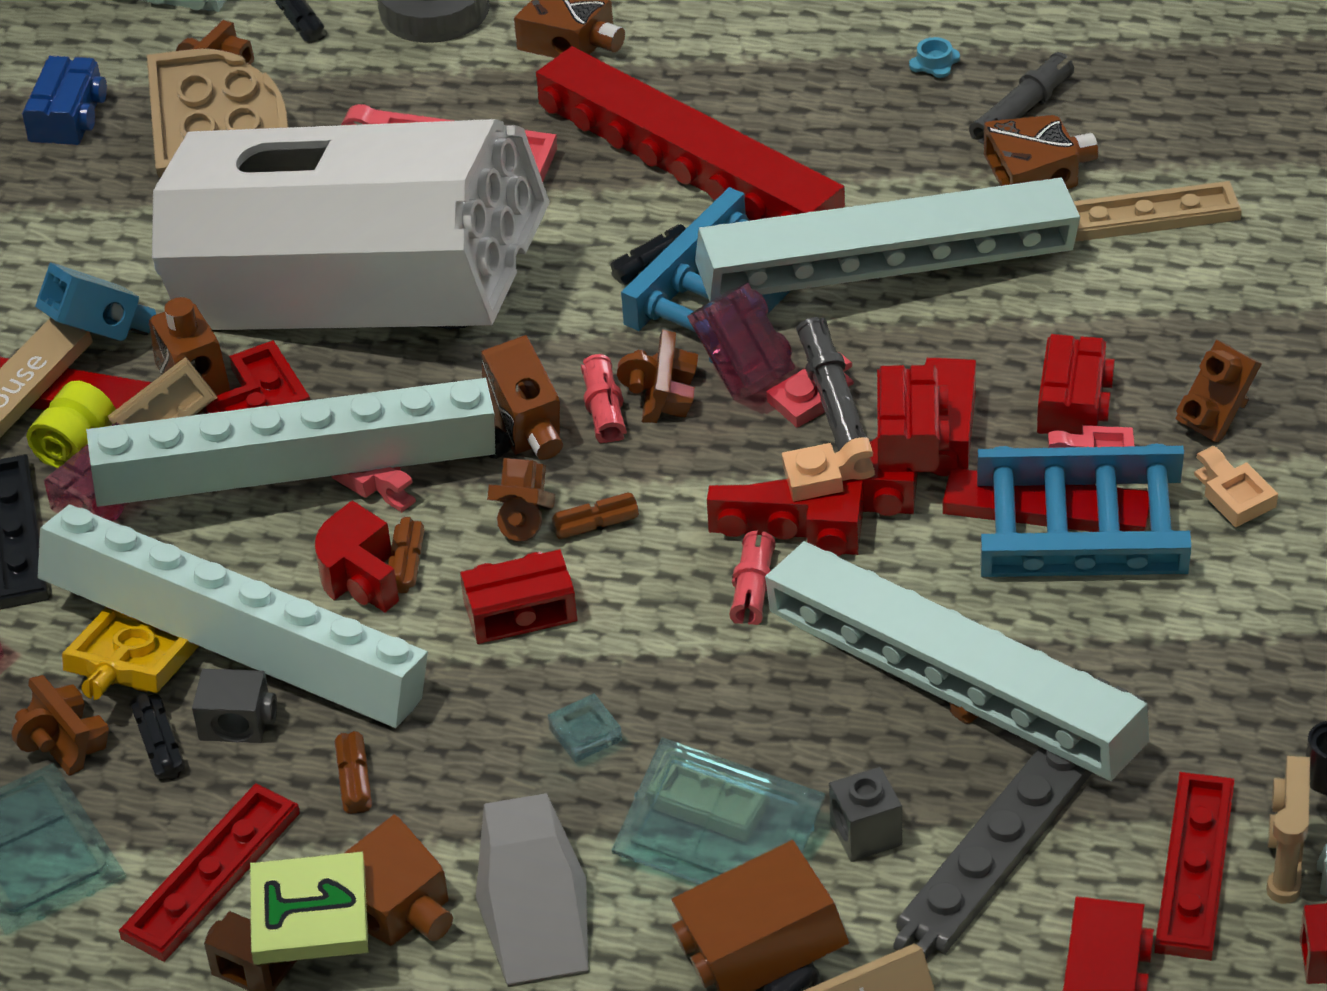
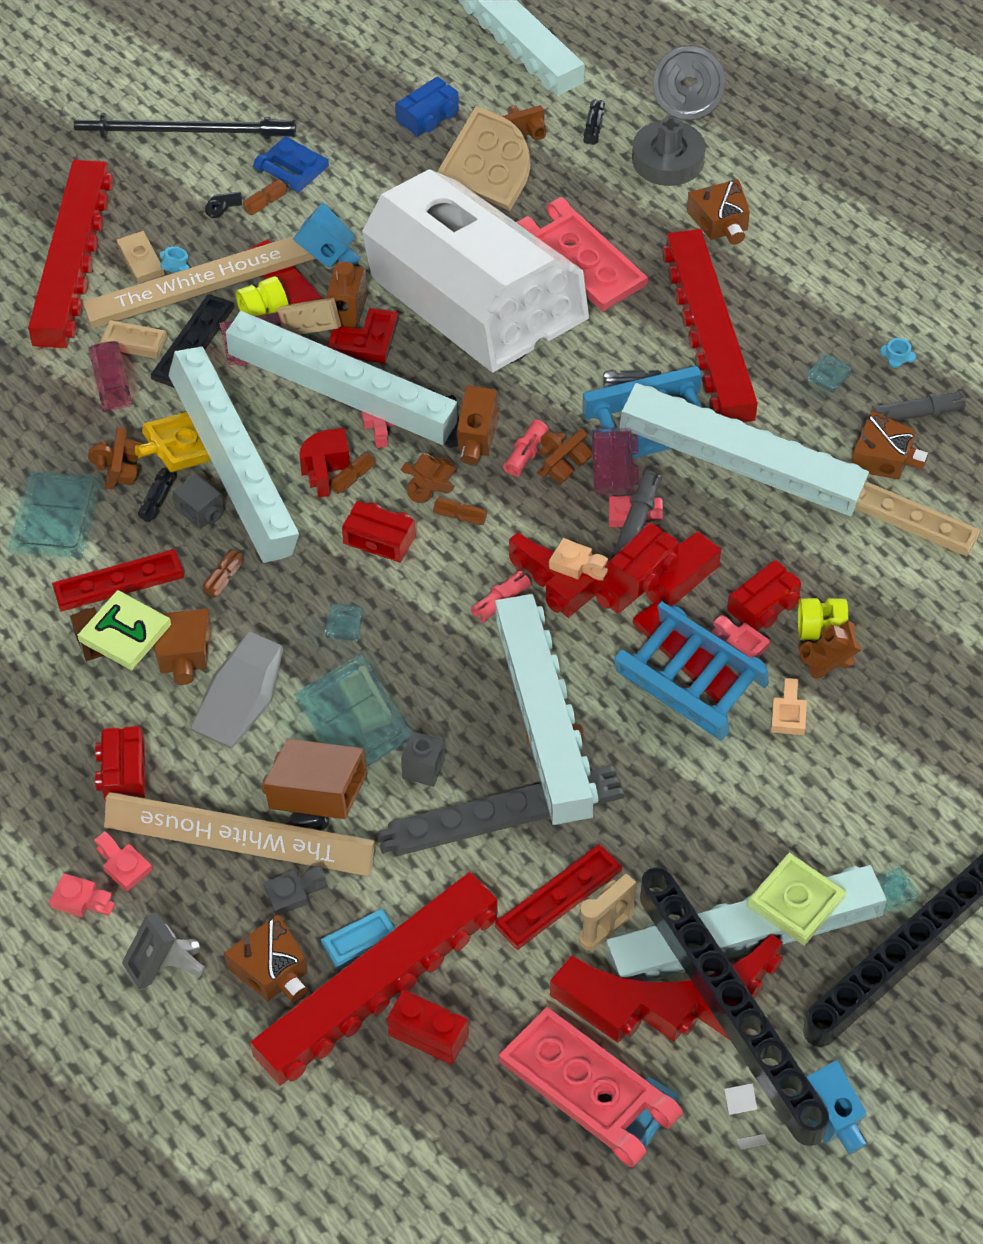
camera: 35 degrees right, 10 degrees up
(882, 119) = (829, 373): none -> clear light blue plate
(1164, 369) = (817, 616): none -> neon yellow wheel

